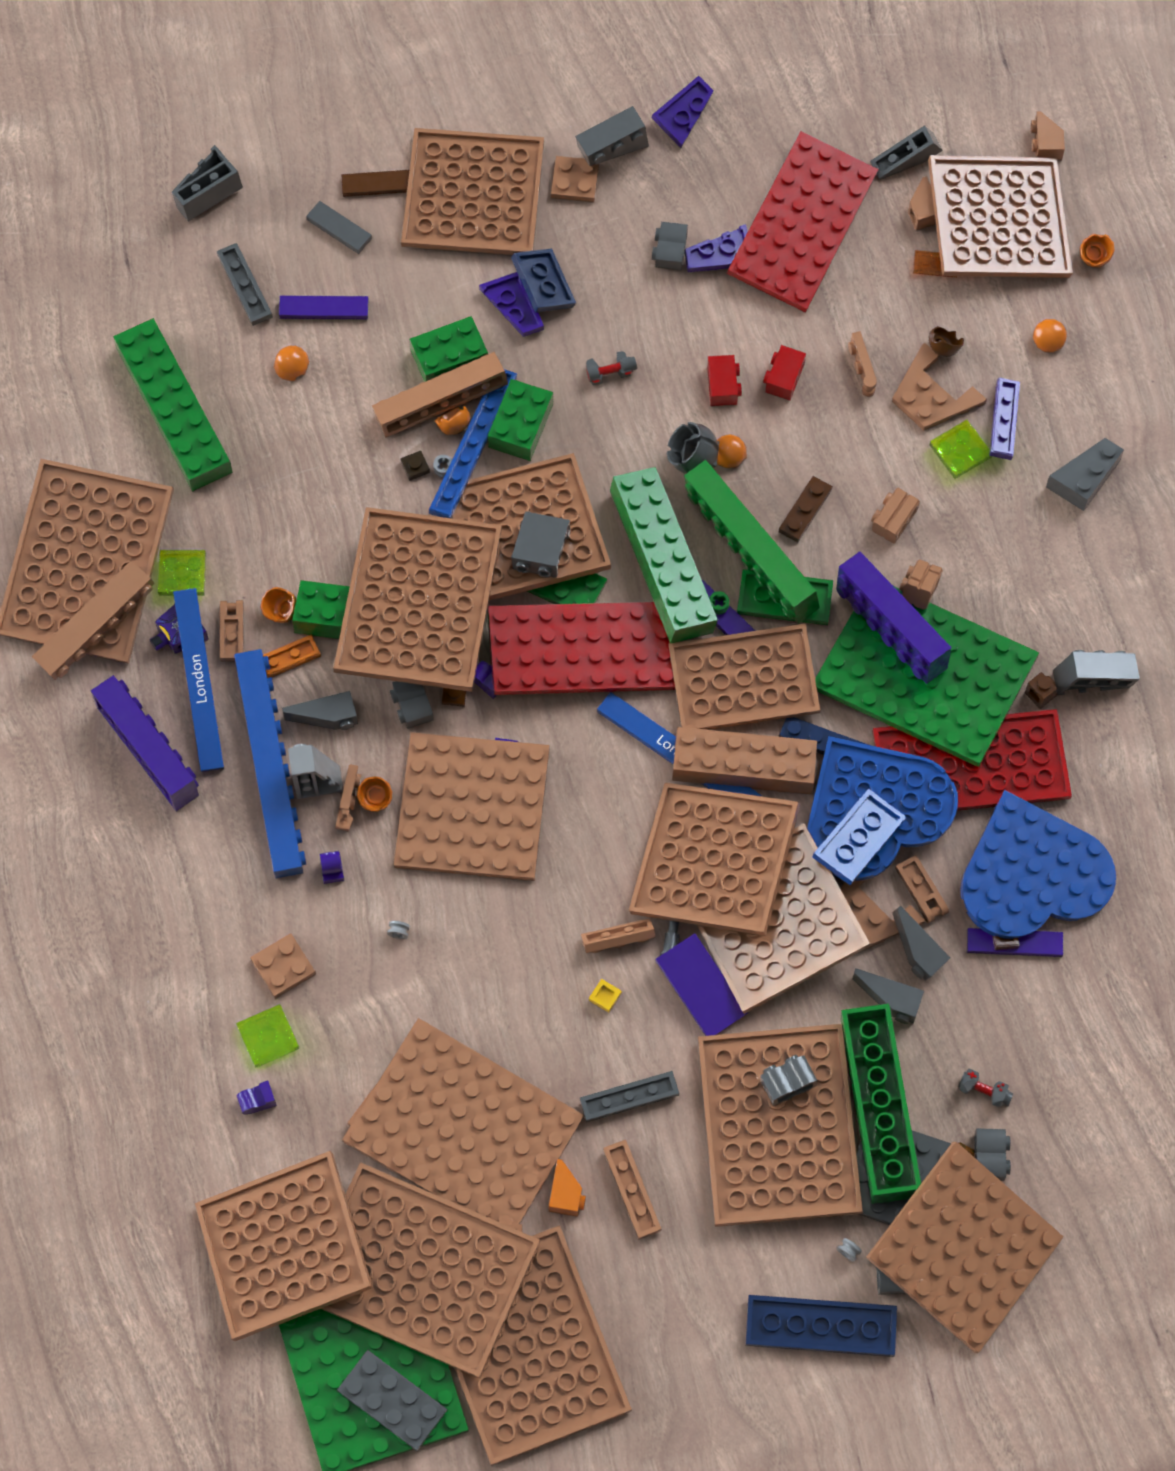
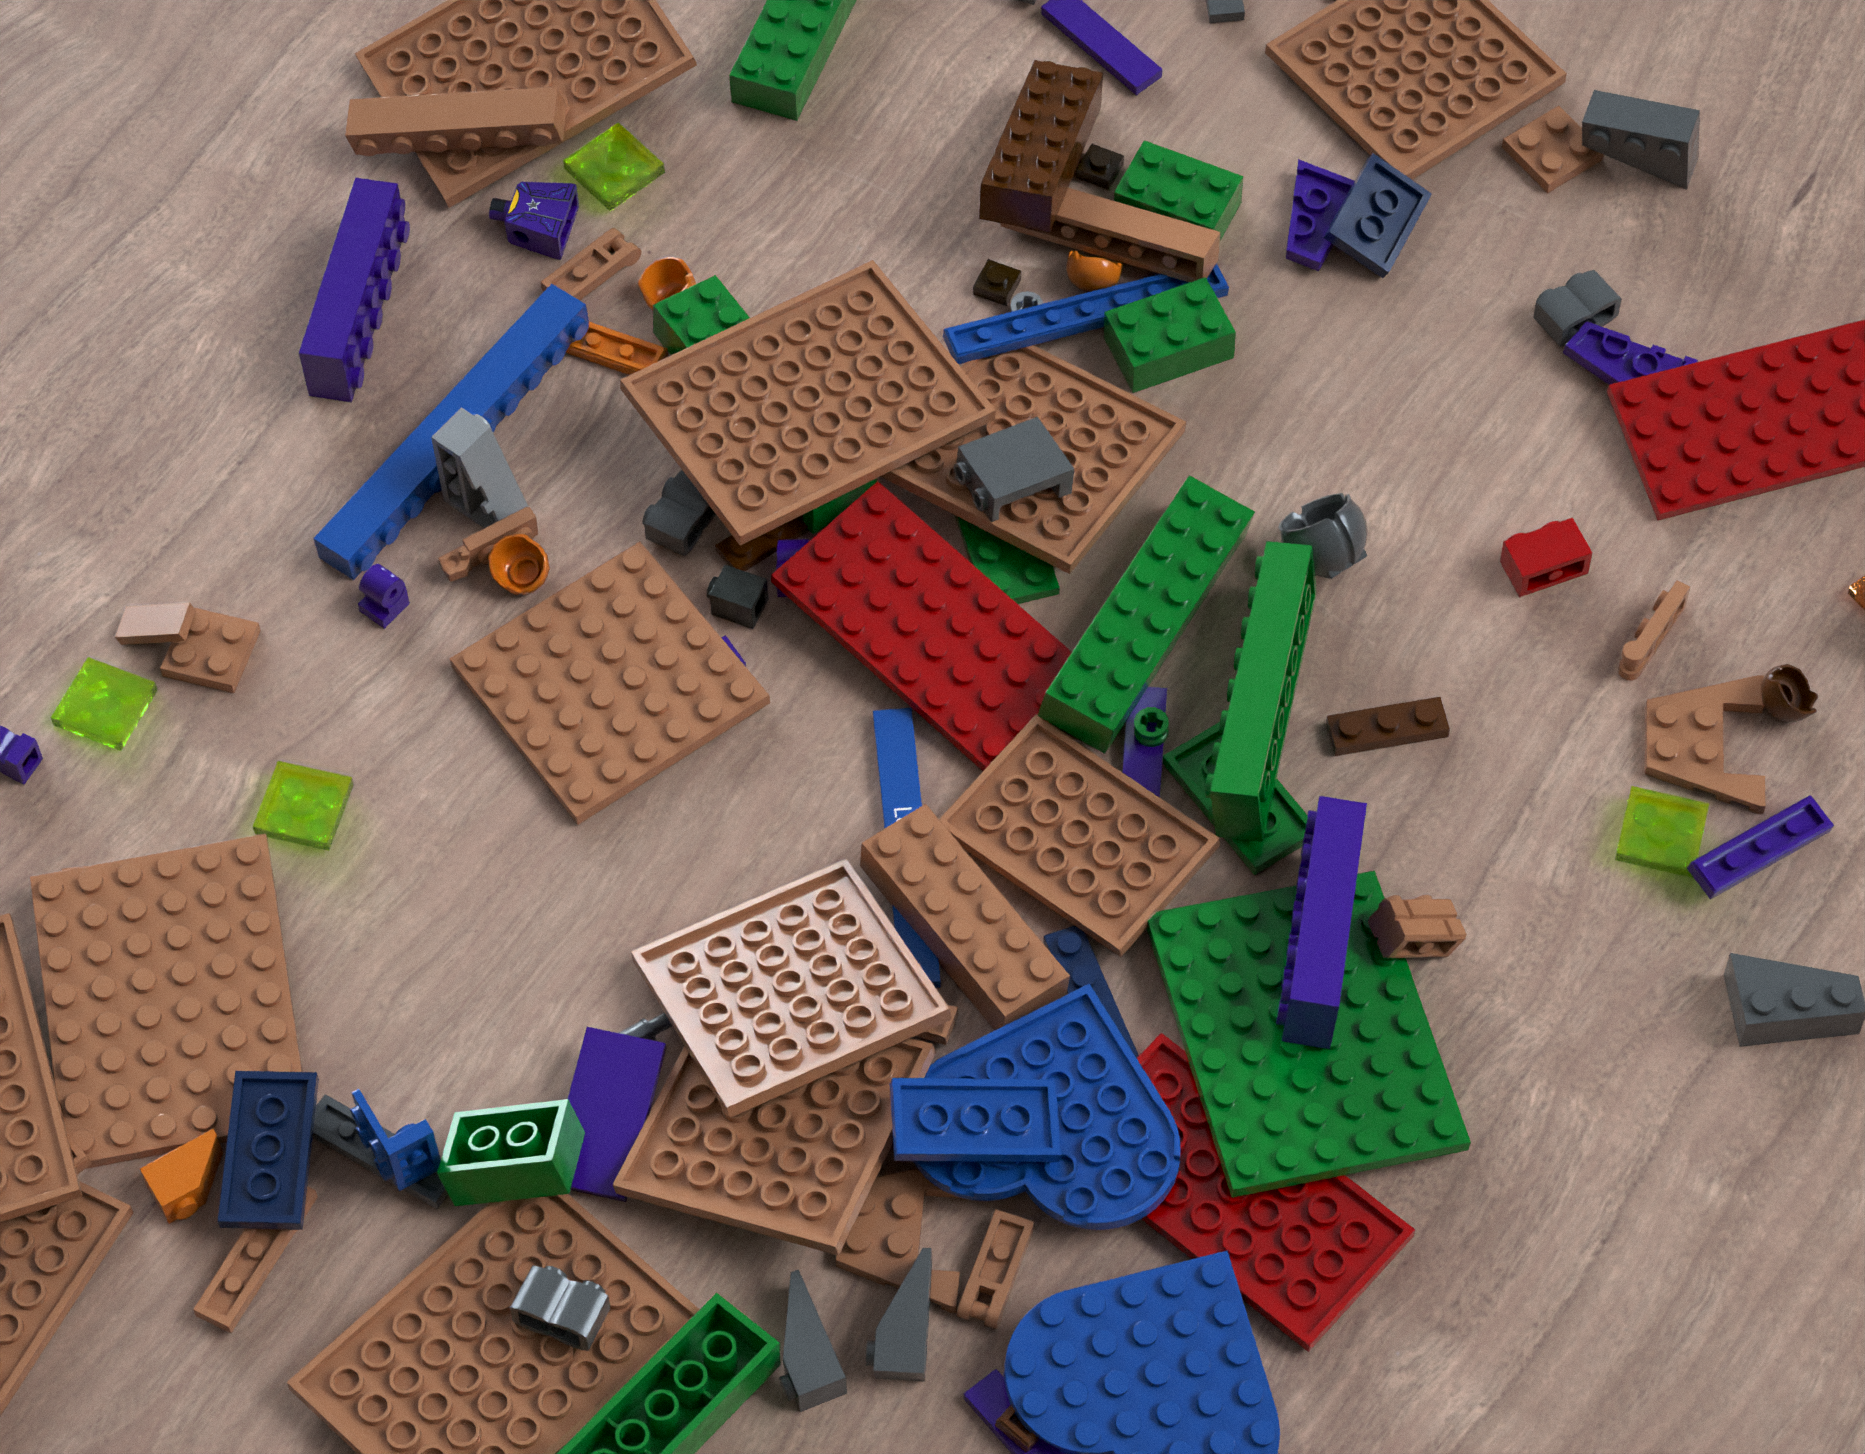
camera: 50 degrees right, 10 degrees down
(198, 680) = (487, 280): blue tile -> none
(248, 978) = (155, 623): none -> tile
(291, 362) = (995, 64): orange hair -> none
(326, 712) = (585, 442): dark grey slope -> none
(370, 383) = (1041, 146): none -> reddish brown brick
(394, 368) = (1100, 166): none -> dark brown plate
(398, 929) = (368, 728): light grey bush -> none
(413, 990) = (303, 805): none -> clear neon green plate
(481, 715) = (738, 596): none -> pearl dark grey brick
(591, 1143) = (268, 1150): none -> dark blue plate
(605, 995) = (493, 1018): yellow plate -> none
(618, 936) = (587, 969): nougat plate -> none
(623, 367) = (1361, 386): dark grey piece -> none
(646, 1093) = (403, 1157): none -> blue bracket
(683, 110) = (1774, 182): dark purple wing -> none
(692, 1040) = (511, 1153): none -> green brick
(723, 380) = (1459, 499): red brick -> none
(731, 451) = (1374, 583): orange hair -> none
(895, 515) = (1485, 828): nougat brick -> none
(1044, 687) = (1423, 1190): reddish brown brick -> none
(1096, 669) = (1521, 1234): wedge -> none

